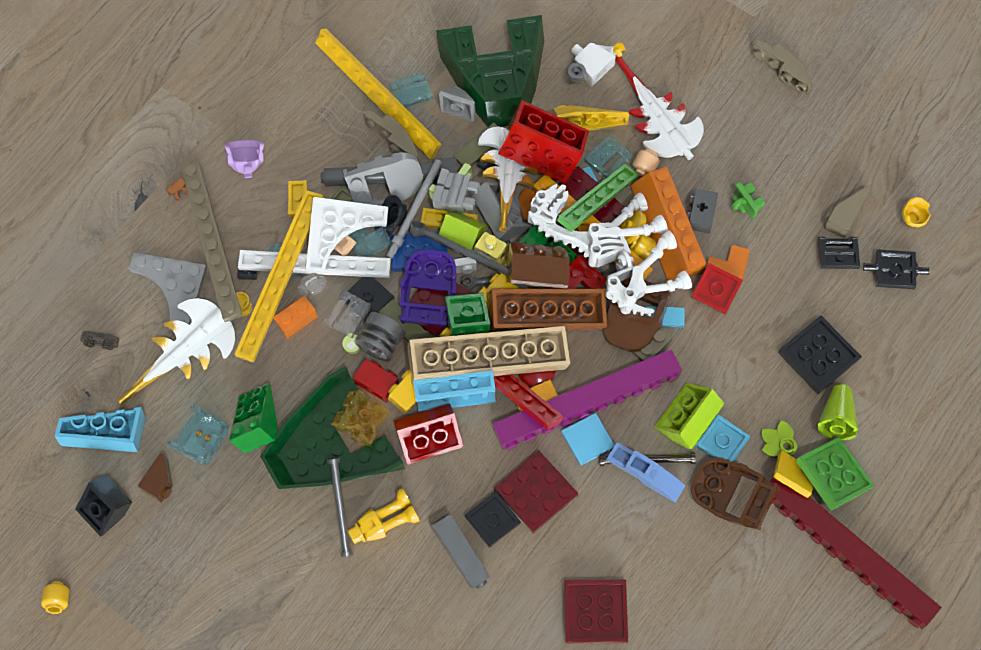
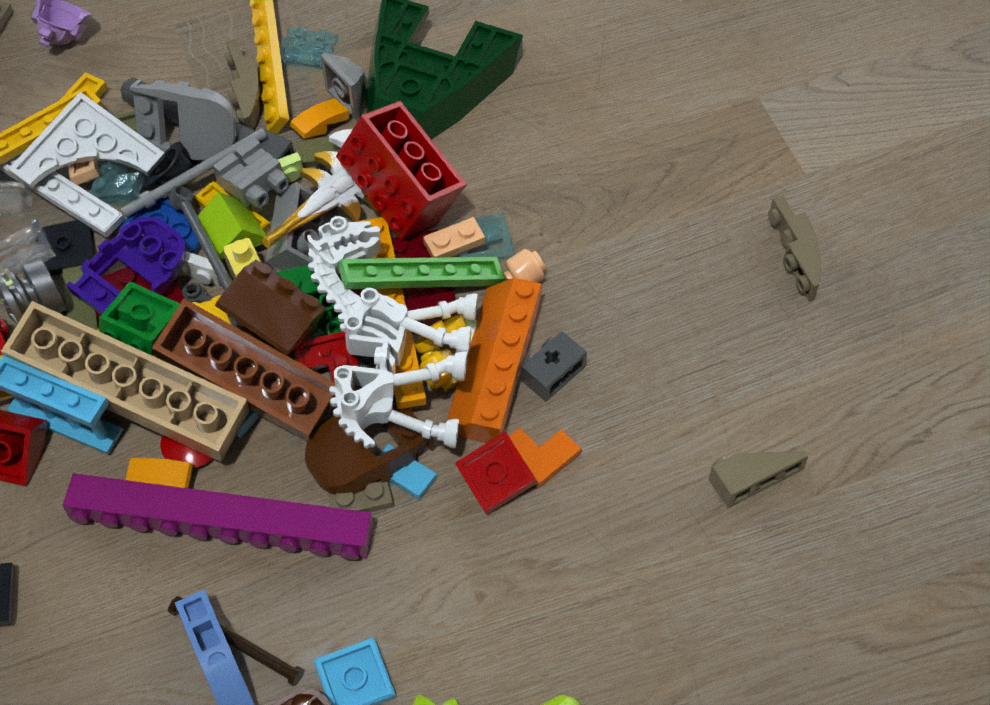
camera: 30 degrees right, 10 degrees down
(456, 133) = (316, 118): none -> light orange slope
(528, 401) = (133, 469): red plate -> none
(536, 491) = (63, 596): dark red plate -> none
(587, 439) = (180, 567): medium azure tile -> none
(591, 117) = (491, 181): yellow wedge -> none
(593, 61) = (546, 120): white torso -> none
(596, 167) = (454, 239): none -> light nougat plate
(674, 137) = (587, 256): white animal -> none
(689, 415) = (333, 616): lime slope -> none
(744, 201) = (626, 395): bright green hips -> none
(819, 354) = (574, 641): black plate -> none
(839, 258) = (698, 527): black plate -> none
(896, 269) = (769, 588): black plate -> none
(916, 212) = (851, 526): yellow hair -> none

